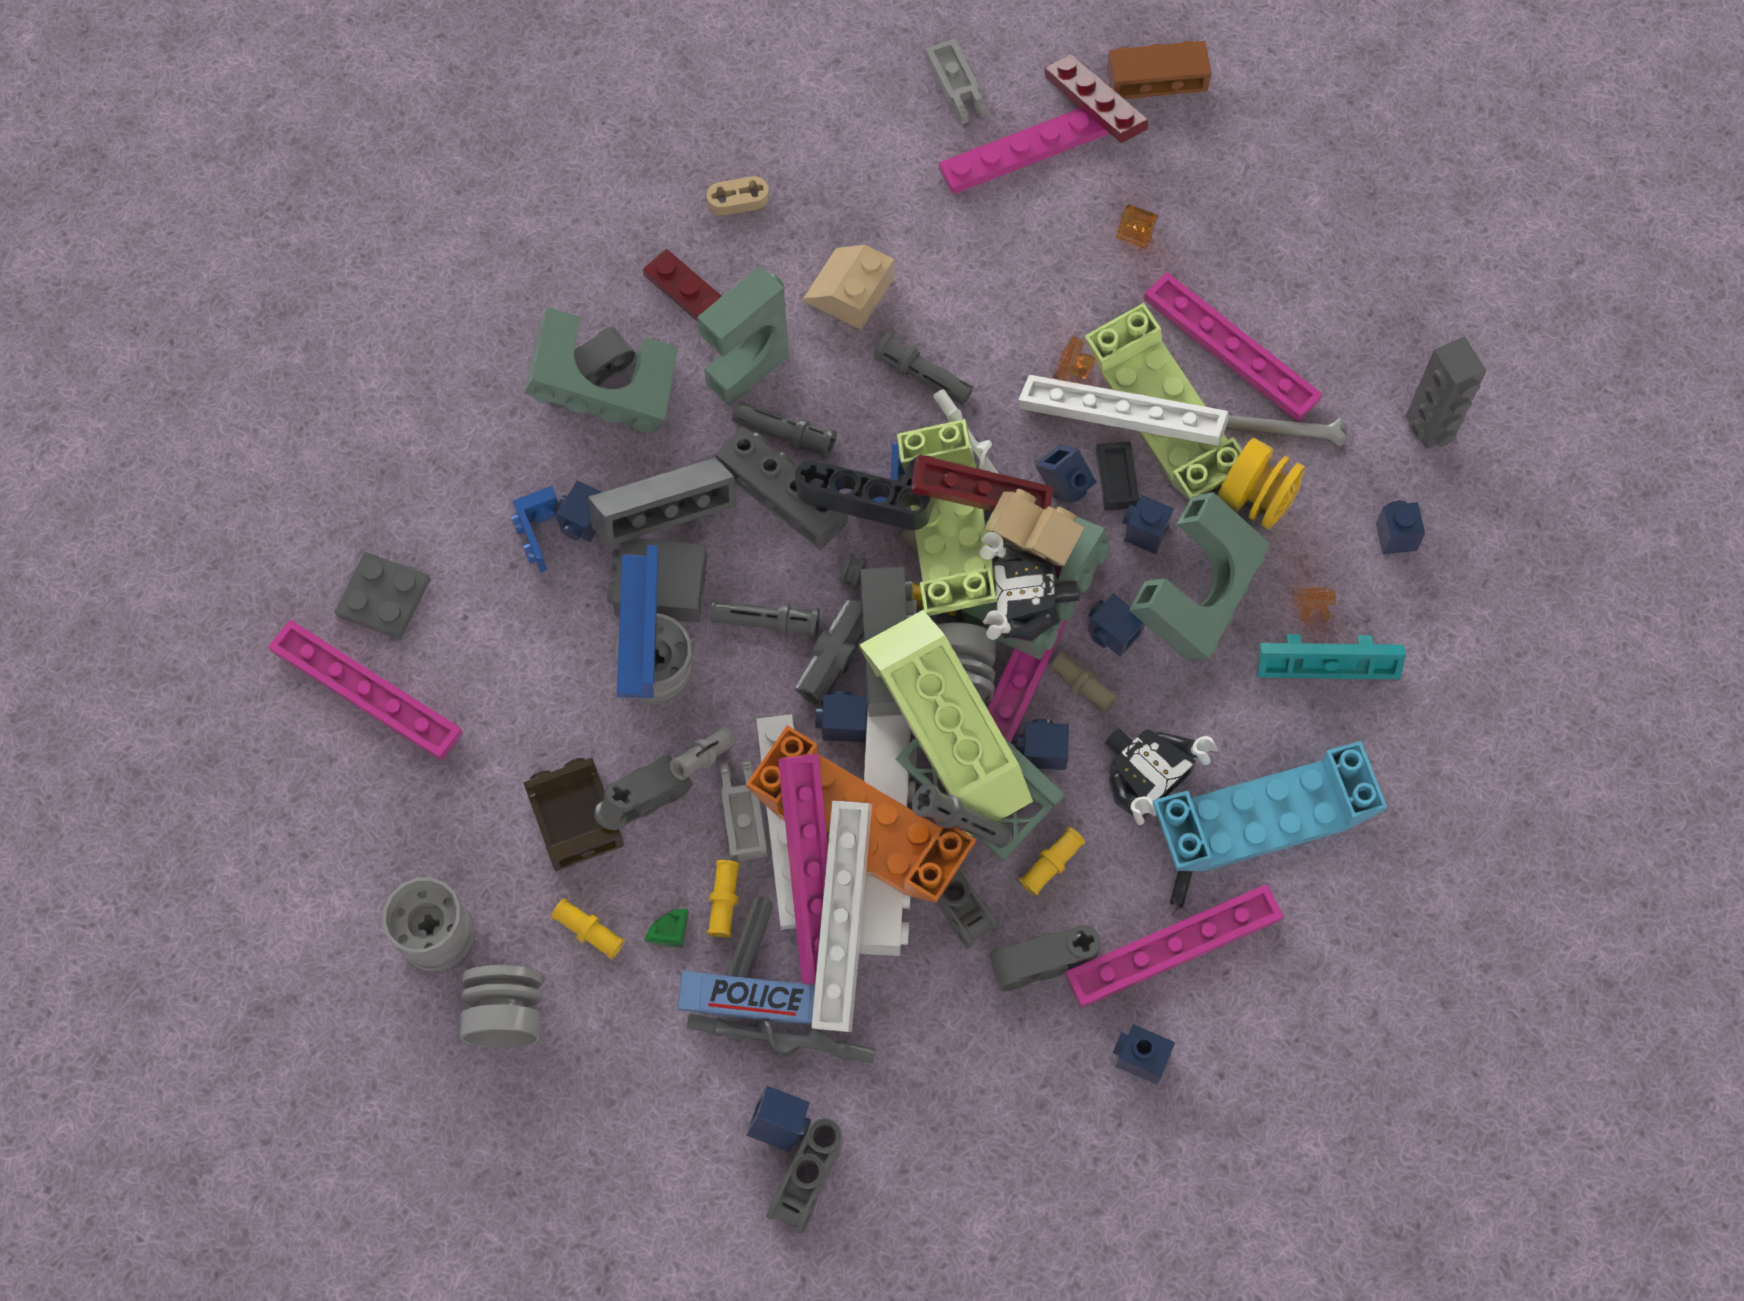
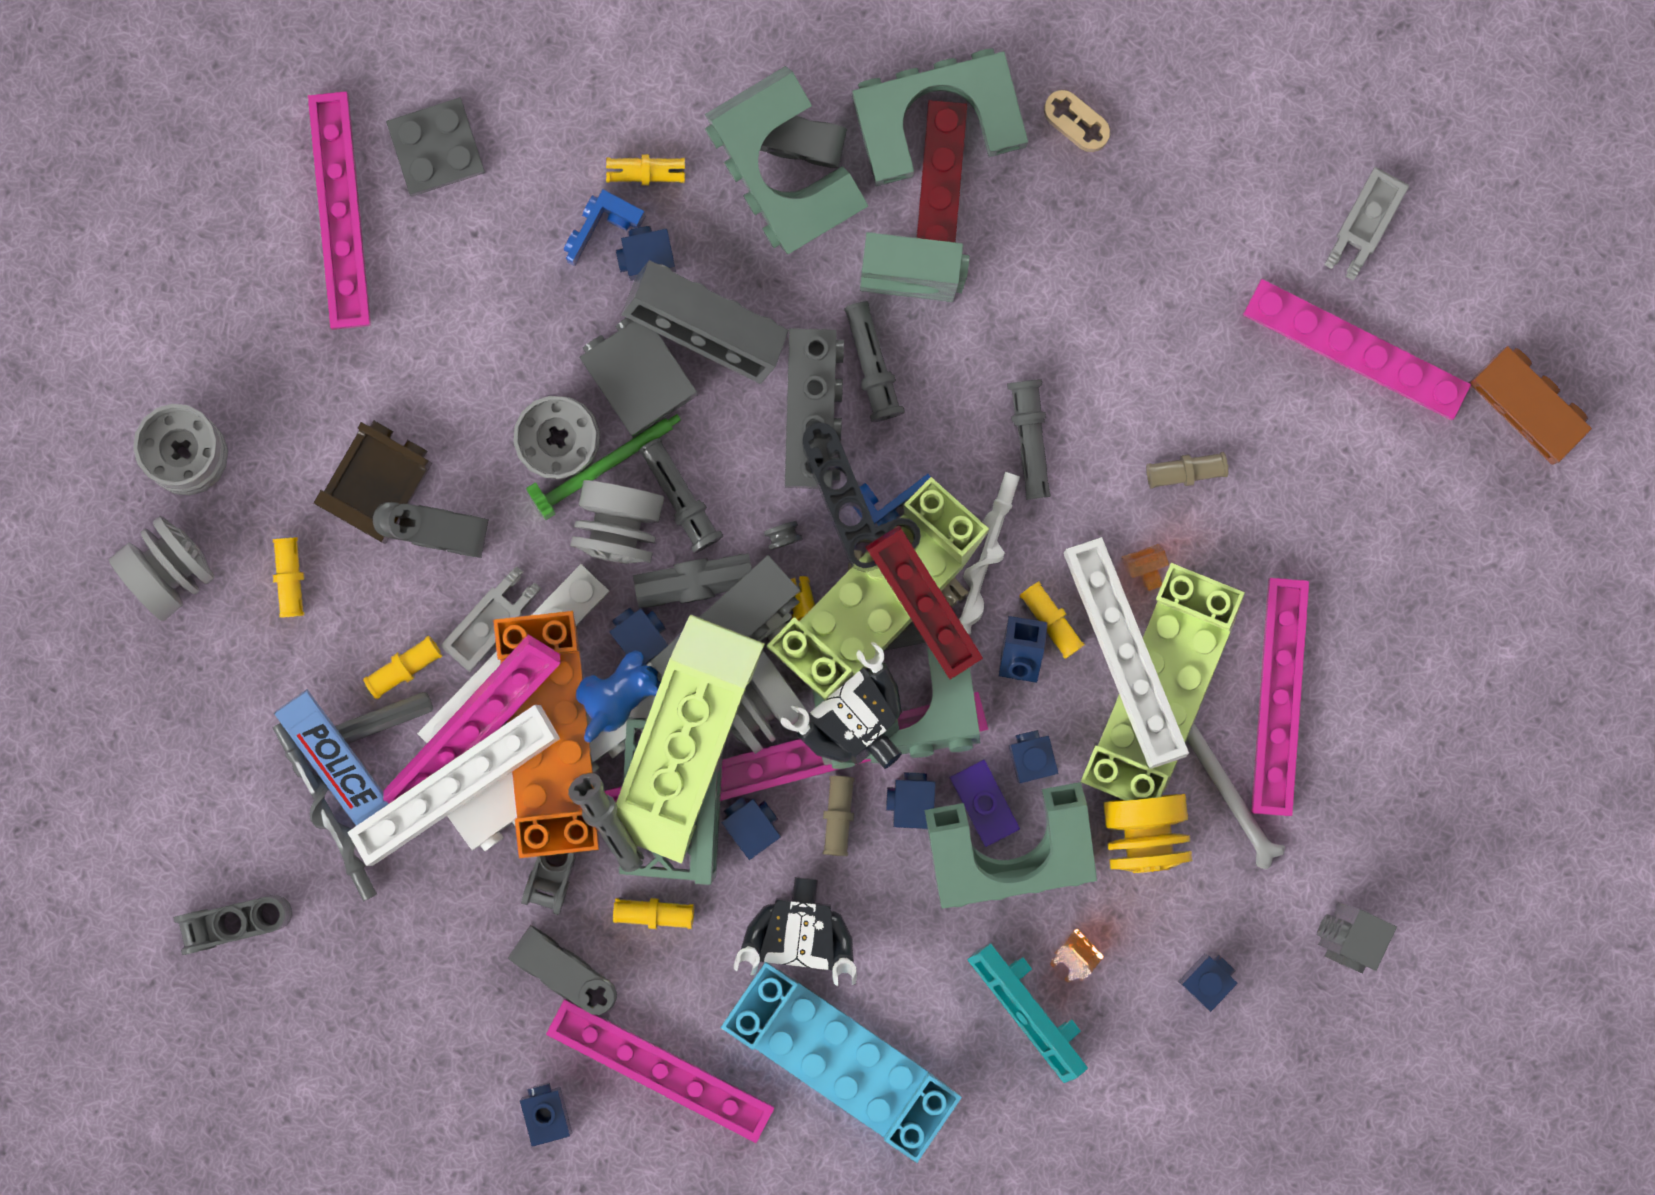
camera: 45 degrees right, 20 degrees up
(525, 472) = (645, 170): none -> yellow pin
(638, 625) = (560, 409): blue fence -> none
(658, 227) = (980, 81): none -> sand green arch
(669, 929) = (343, 642): green tile -> none
(690, 762) = (509, 547): light grey pin -> none
(693, 708) = (545, 502): none -> bright green piece
(748, 663) = (617, 521): none -> light grey wheel
(779, 1119) = (254, 866): dark blue brick -> none
(852, 284) = (1065, 300): tan slope -> none
(873, 745) = (613, 698): none -> blue animal
(1028, 293) = (1187, 470): none -> dark tan pin
(1035, 530) = (919, 681): tan brick -> none
(1045, 444) = (1057, 626): none -> yellow pin
(1096, 98) = (1445, 373): plate -> none
(1117, 475) = (1066, 691): black tile -> none
(1135, 573) = (984, 803): none -> dark purple plate
(1137, 226) = (1339, 516): clear orange tile -> none
(1180, 888) = (713, 1039): black piece -> none

